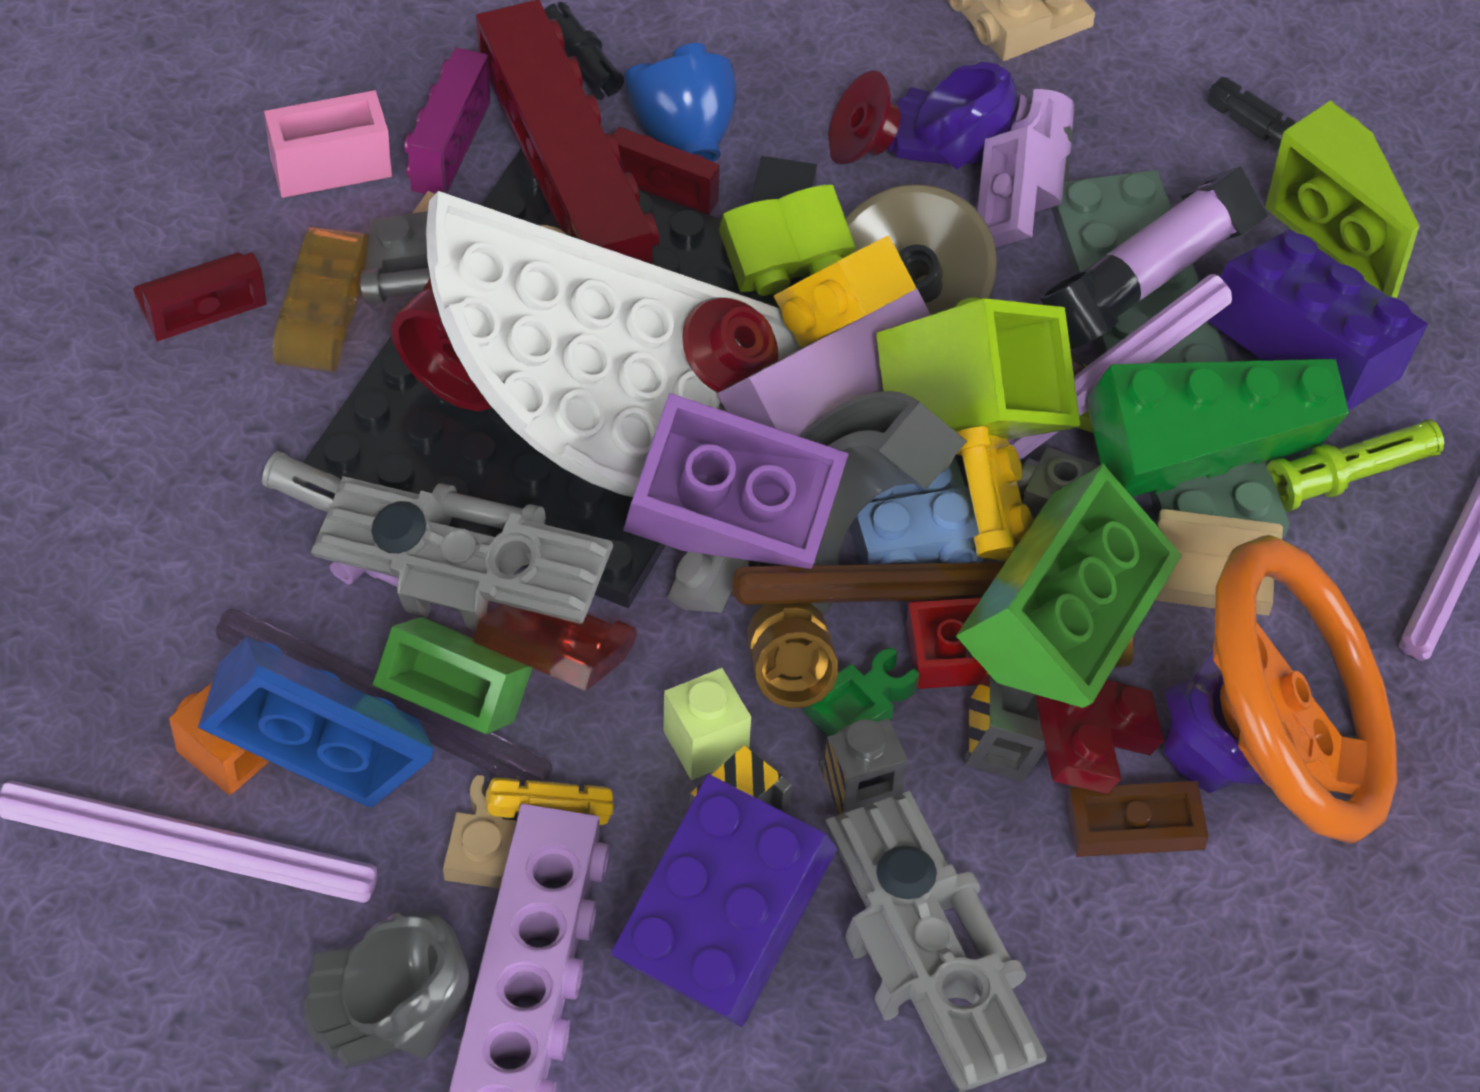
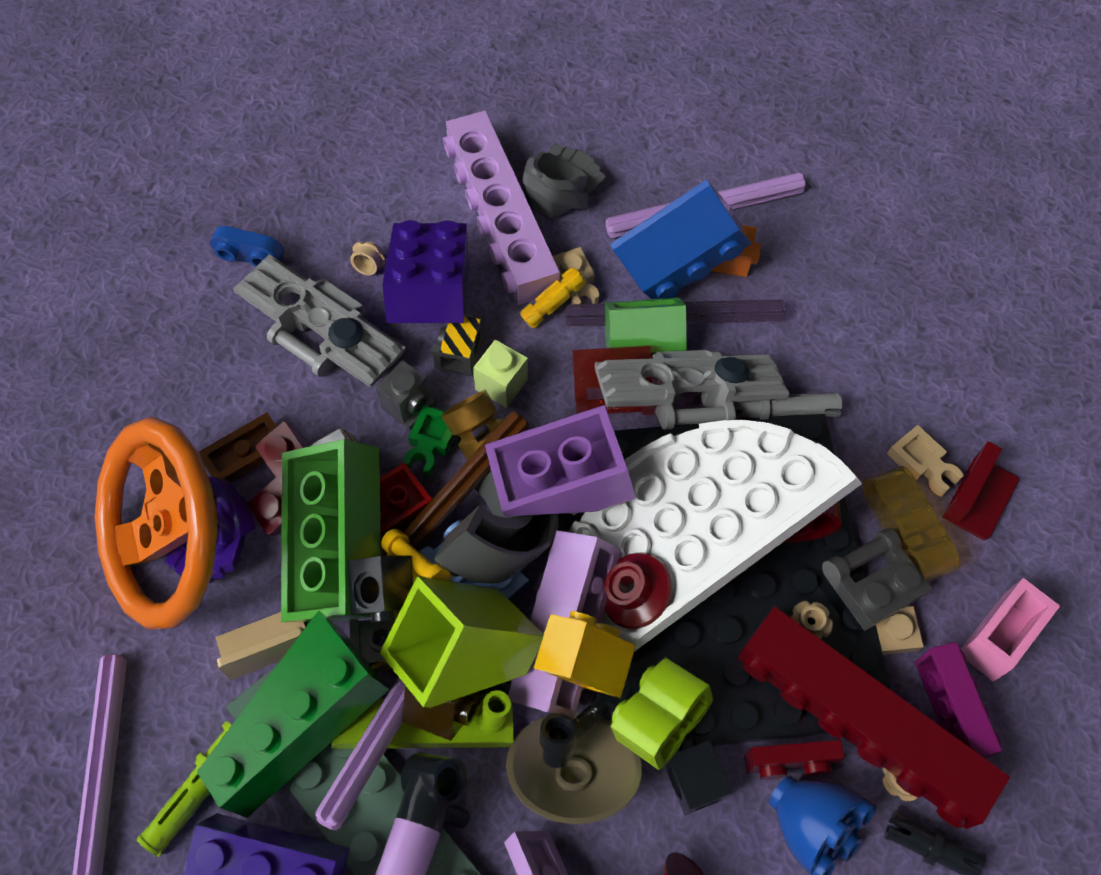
camera: 150 degrees right, 10 degrees up
(231, 355) = (923, 457): none -> tan plate
(792, 1032) = (367, 258): none -> tan plate
(1041, 476) = (380, 585): none -> black brick

